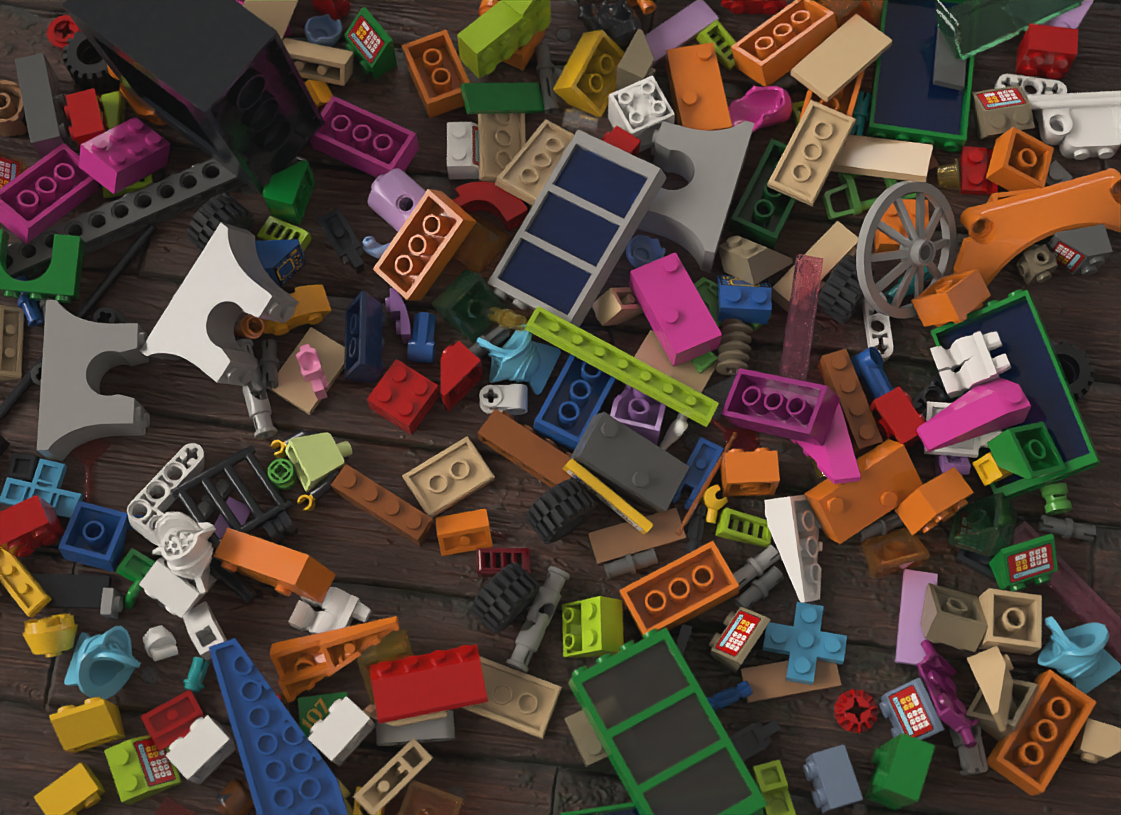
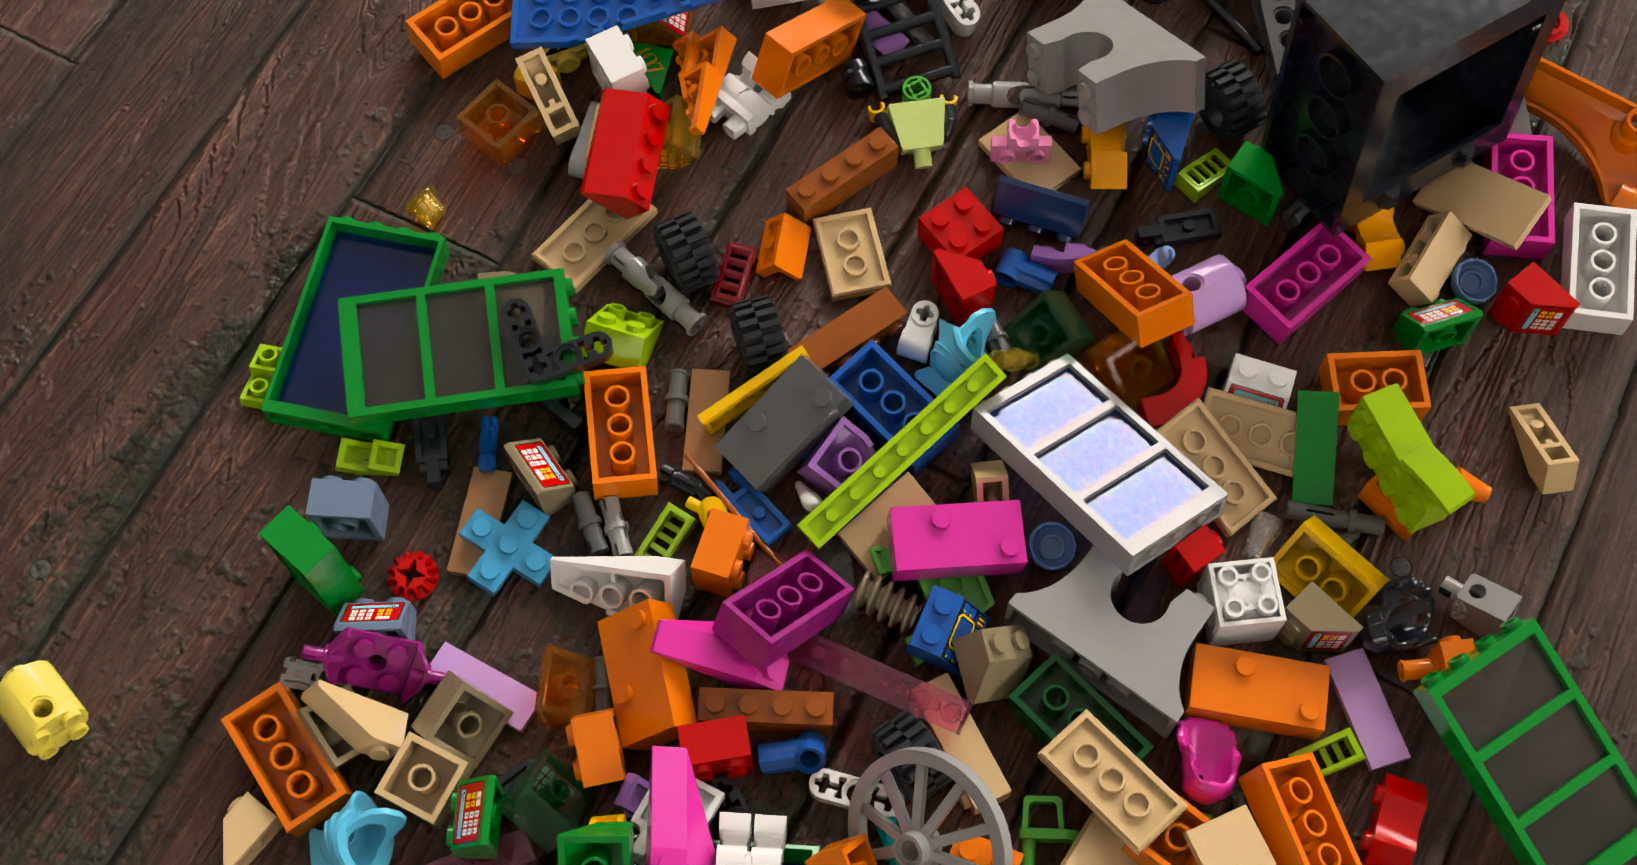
camera: 110 degrees right, 5 degrees down
(654, 654) = (551, 357): none -> black beam

